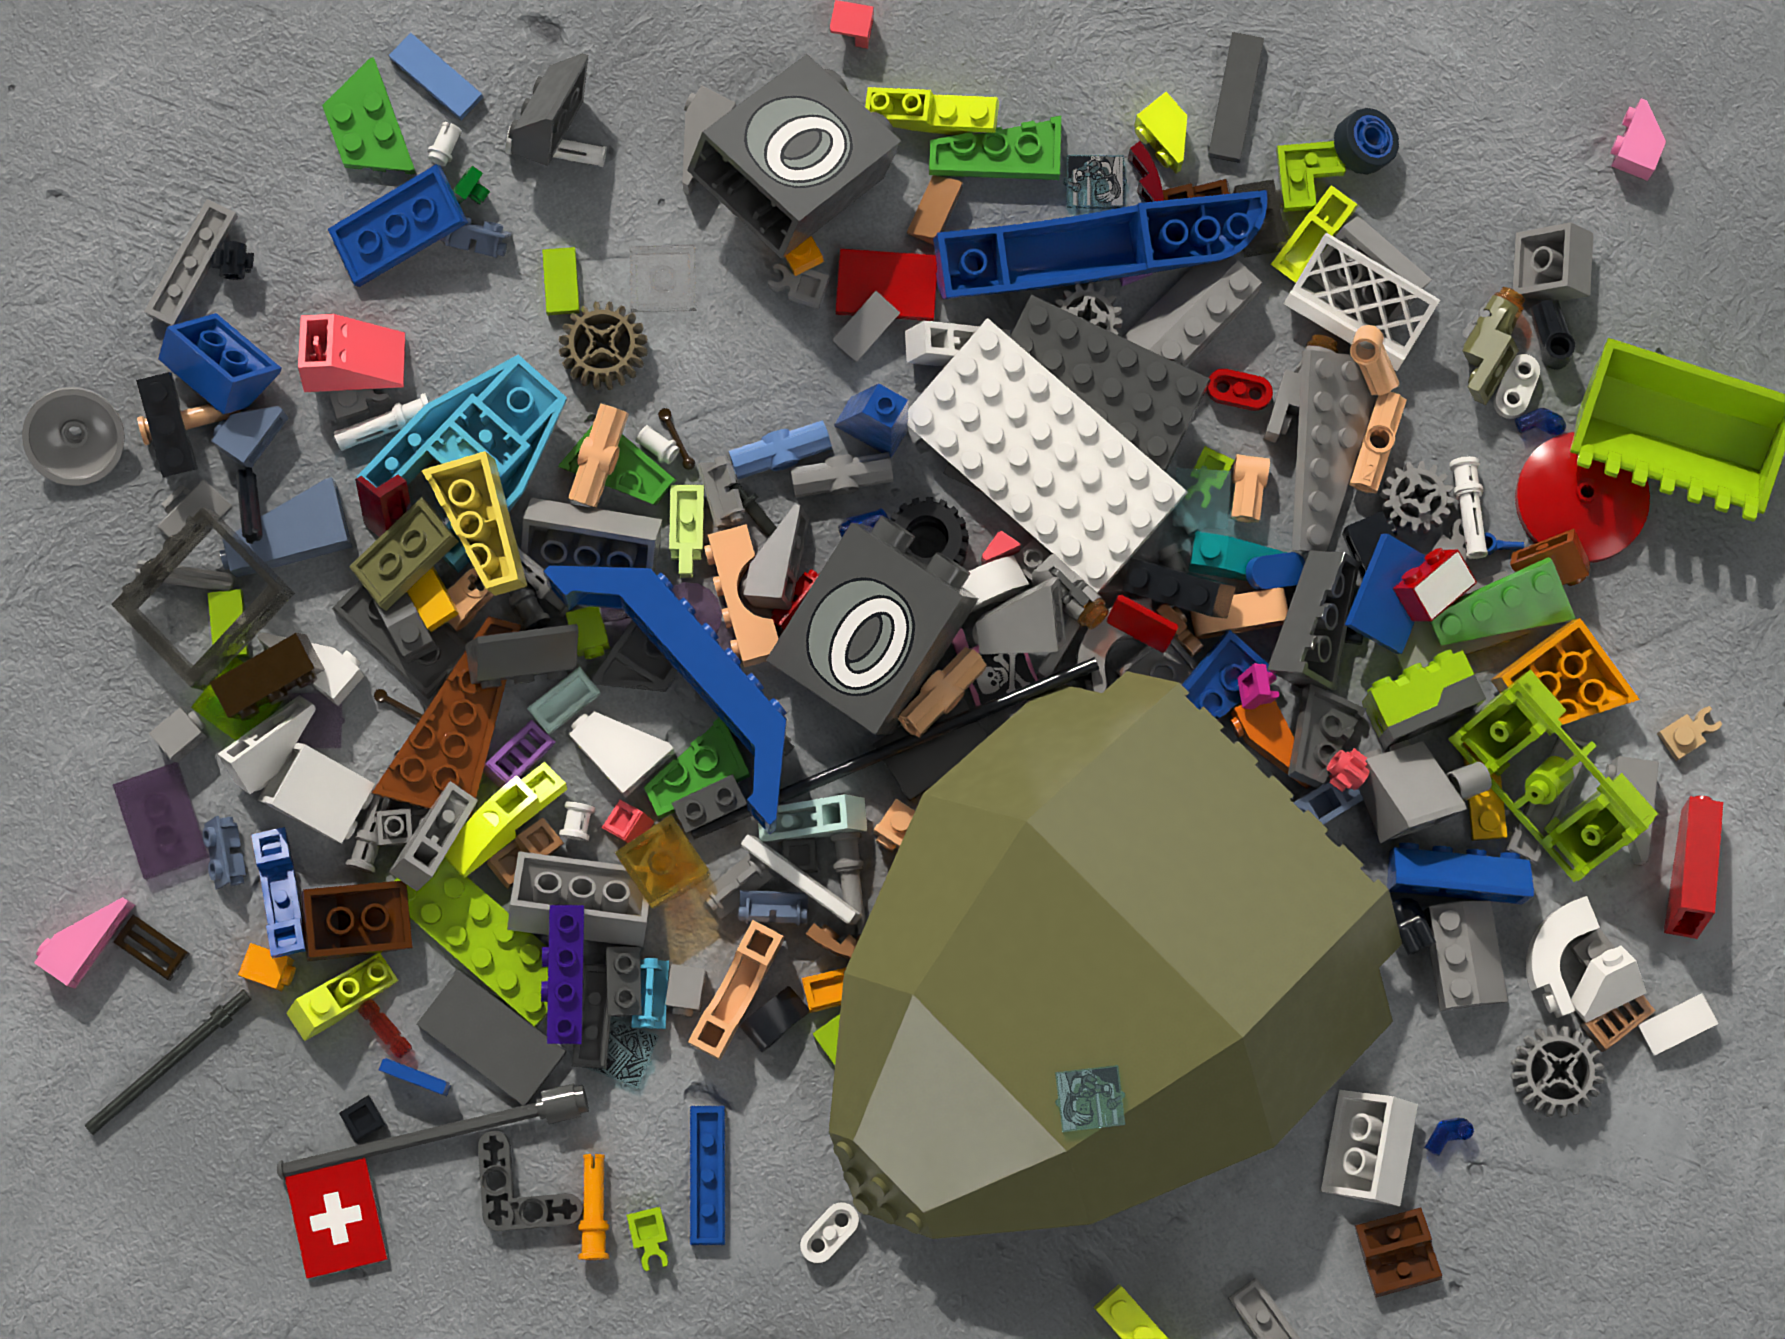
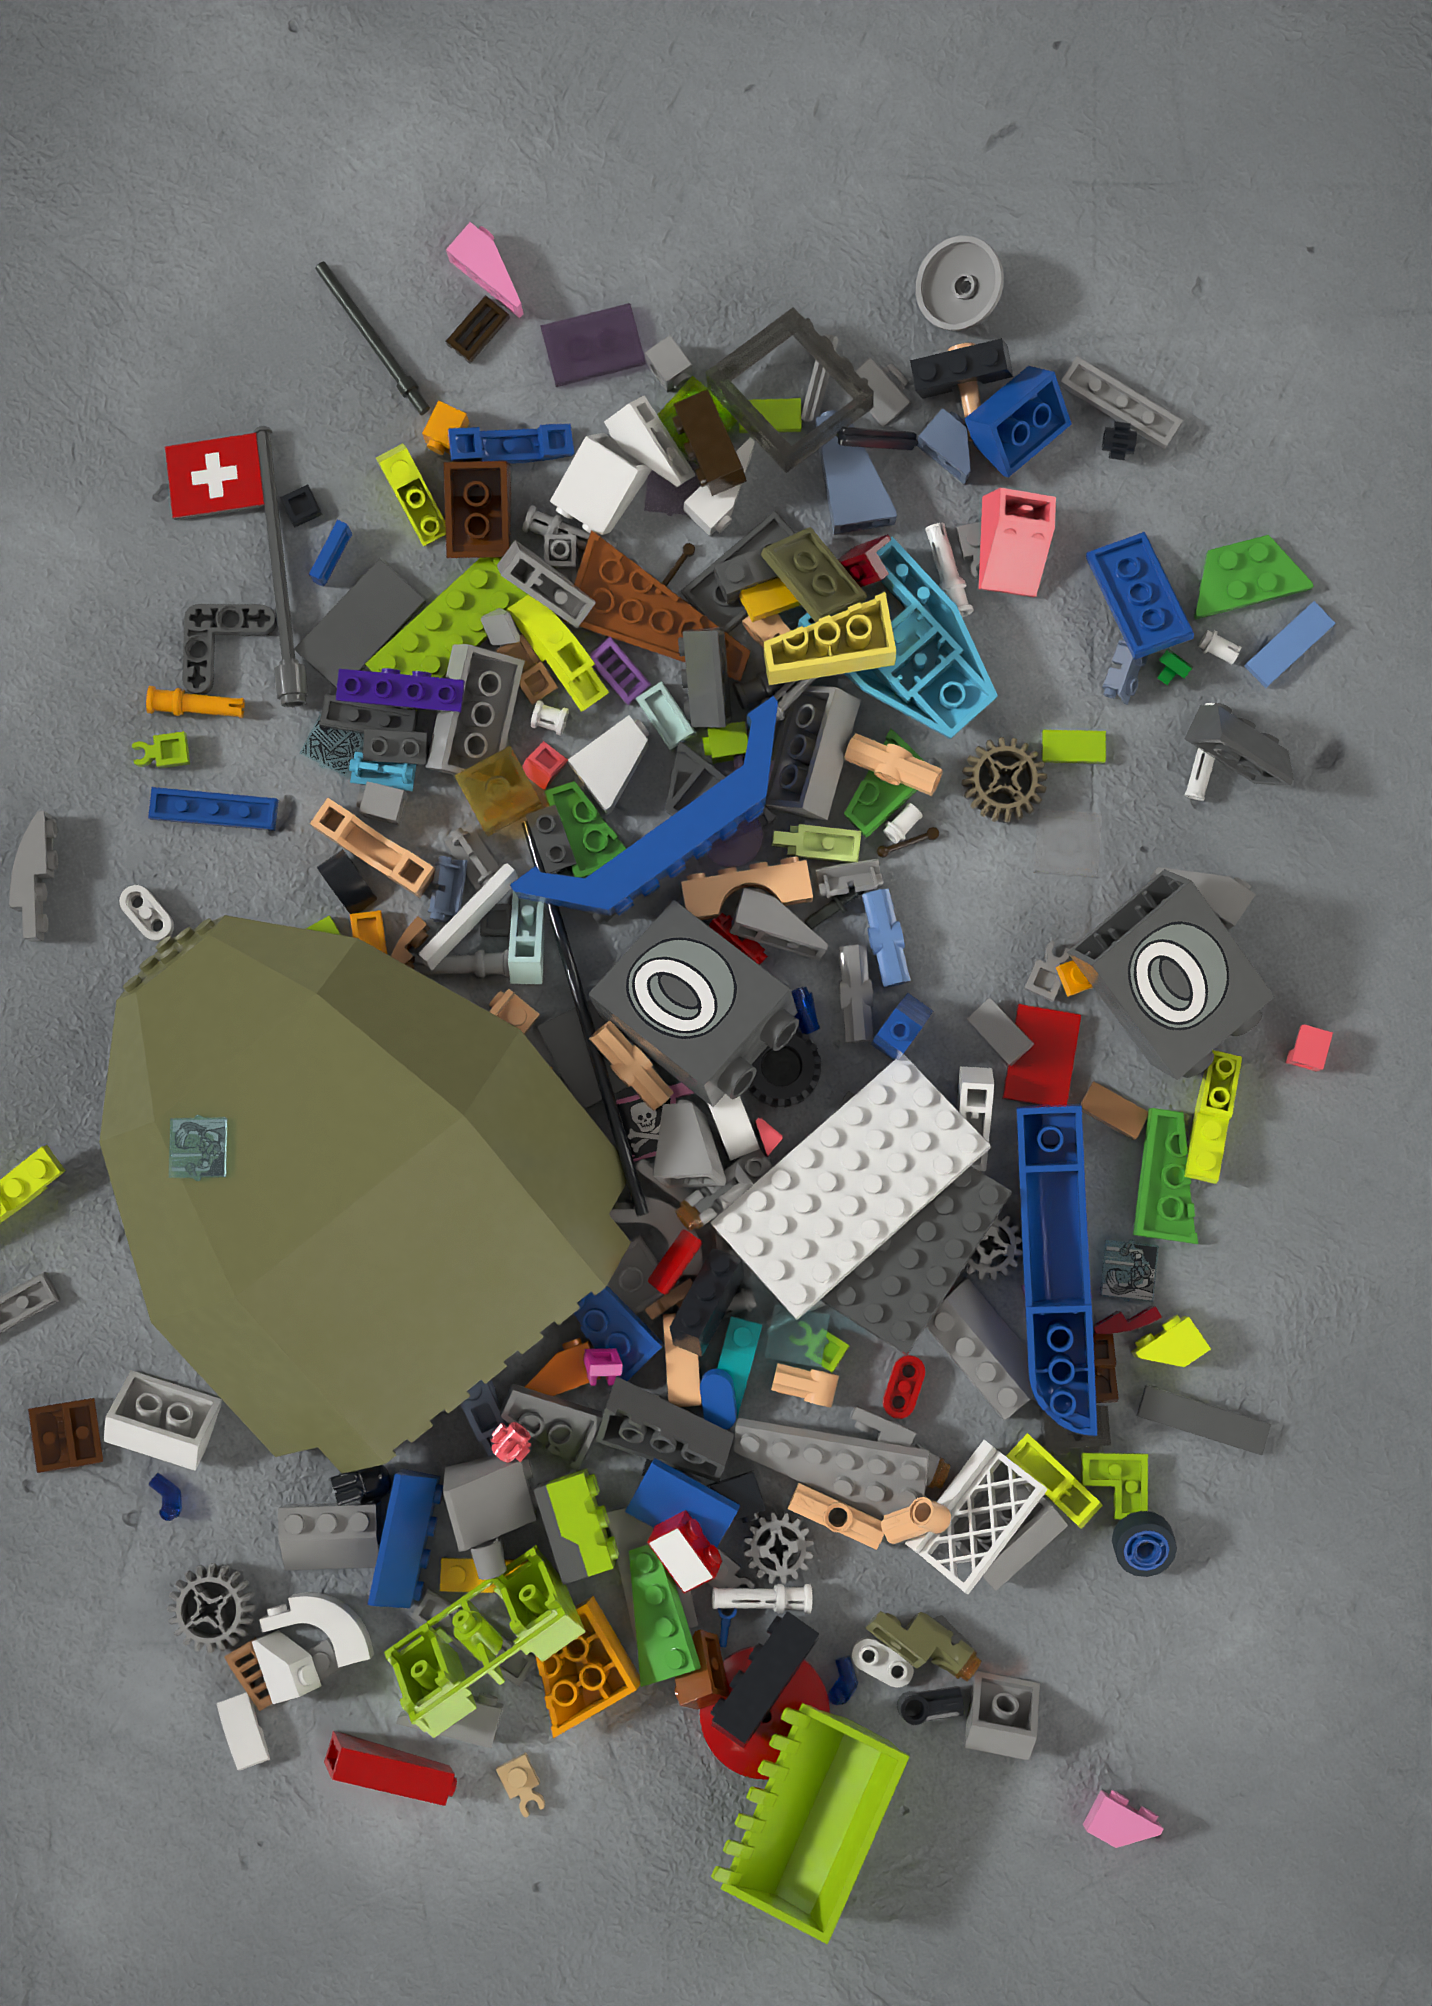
camera: 100 degrees right, 5 degrees up
(224, 867) = (567, 395): sand blue hinge -> none
(384, 1028) = (379, 530): clear red axle -> none
(484, 881) = (500, 627): none -> light grey slope
(1552, 493) = (765, 1678): none -> black brick

